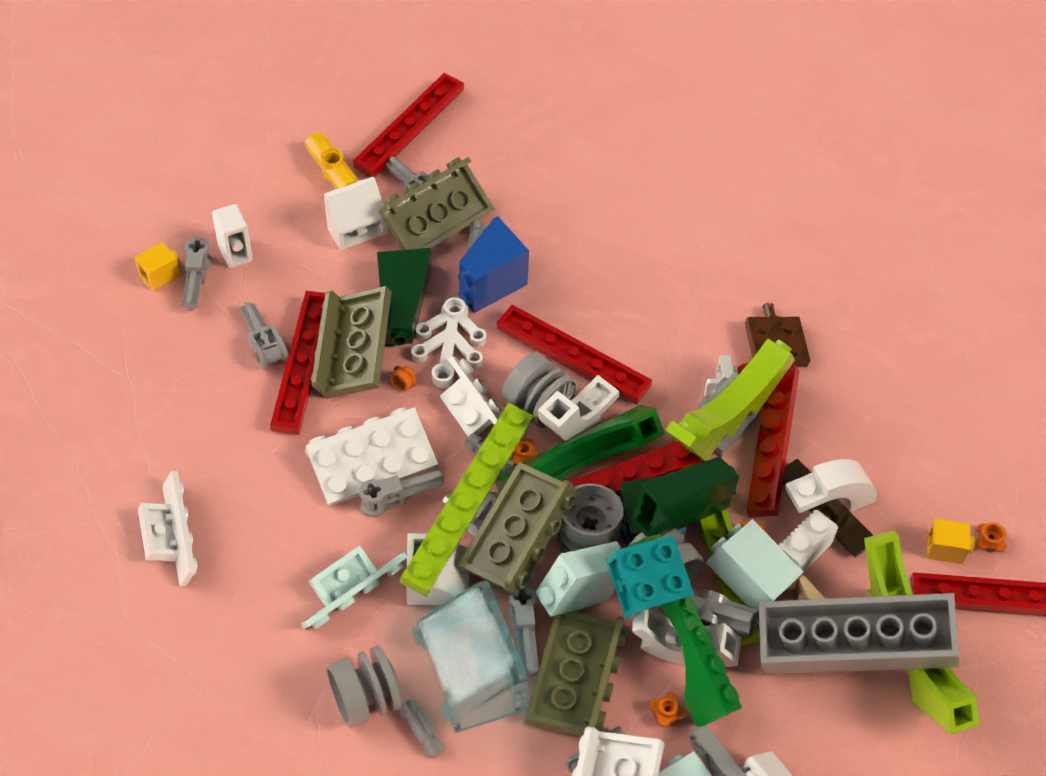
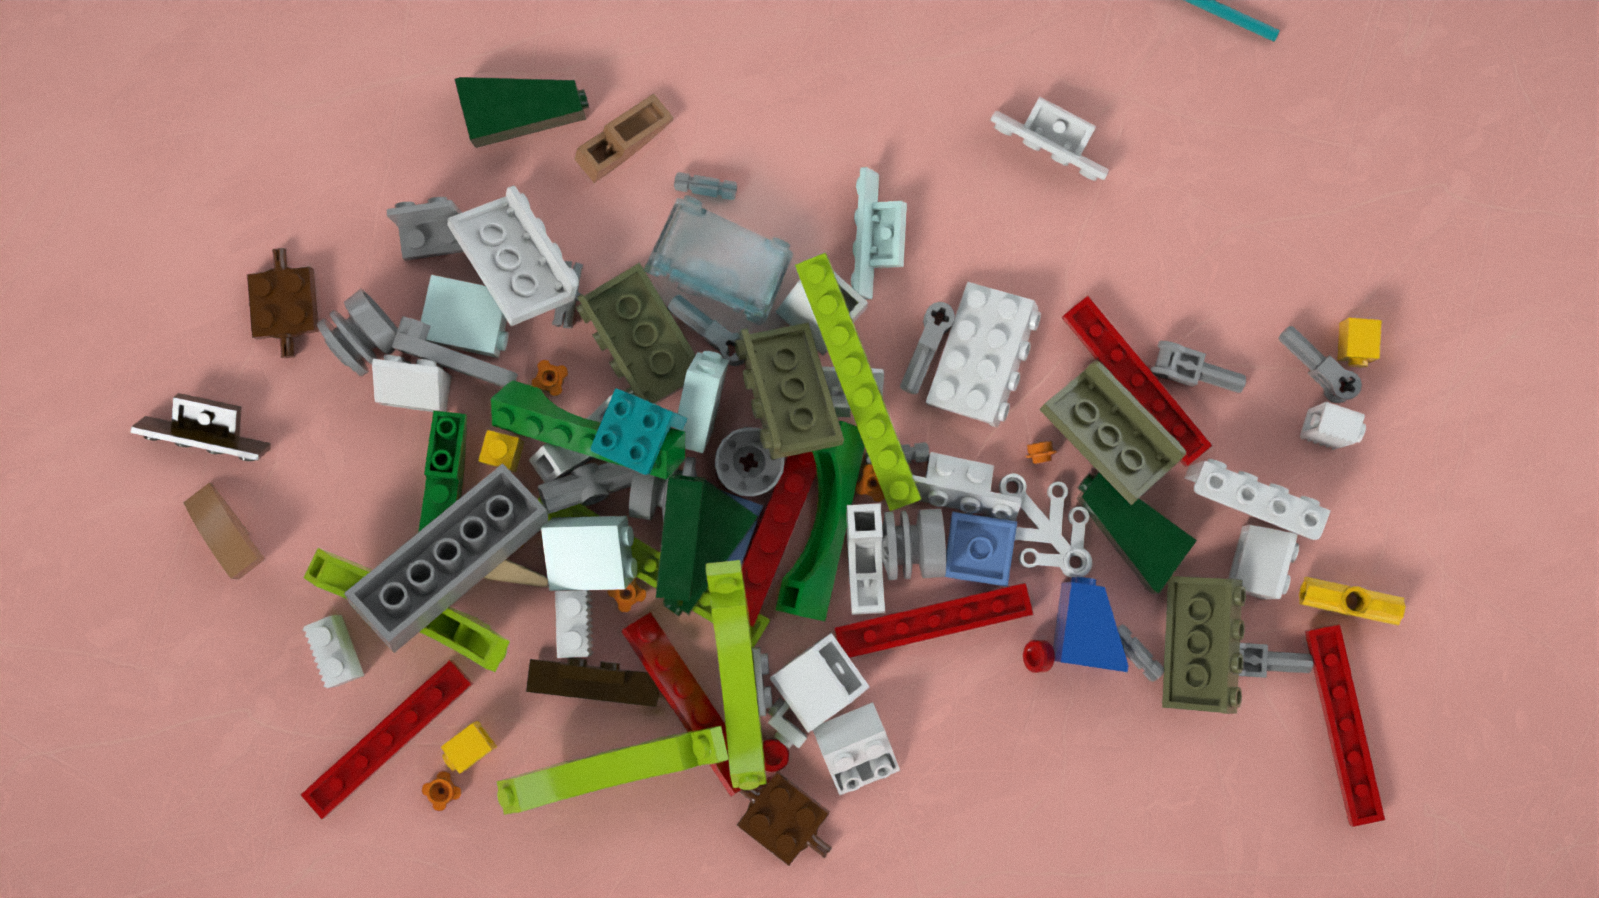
camera: 135 degrees right, 30 degrees up
(320, 233) = (1259, 500): none -> white bracket
(364, 686) = (771, 153): light grey wheel -> none
(495, 359) = (980, 548): none -> medium blue tile
(533, 285) = (1038, 656): none -> red tile
(679, 374) = (819, 682): none -> white slope
(694, 333) = (856, 749): none -> white slope
(754, 689) = (501, 449): none -> yellow brick
(811, 712) = (444, 464): none -> green slope
(829, 425) = (611, 768): none -> lime arch
(832, 481) = (591, 689): white arch -> none
(997, 676) = (333, 651): none -> white brick

